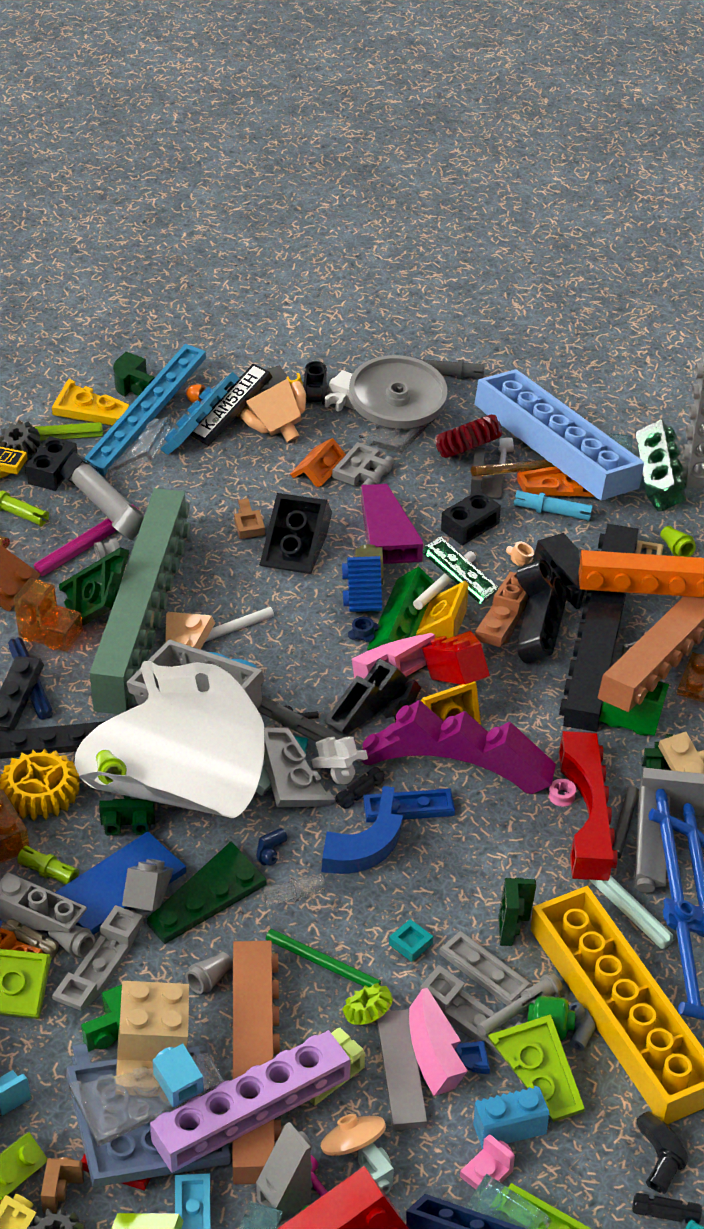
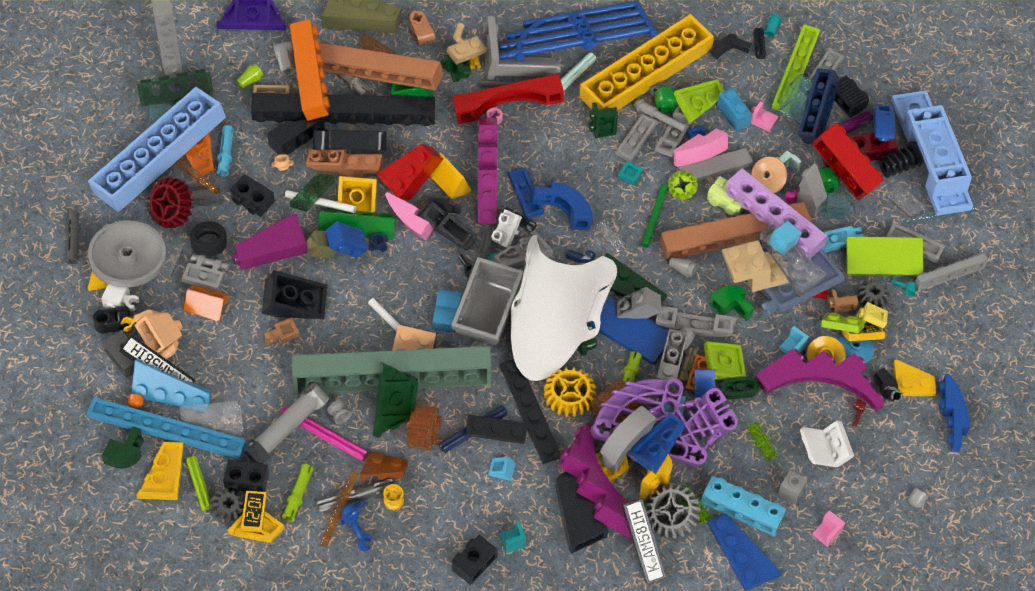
camera: 105 degrees left, 15 degrees up
(109, 764) = (554, 347): lime cone -> none
(412, 458) = (208, 249): none -> black tyre

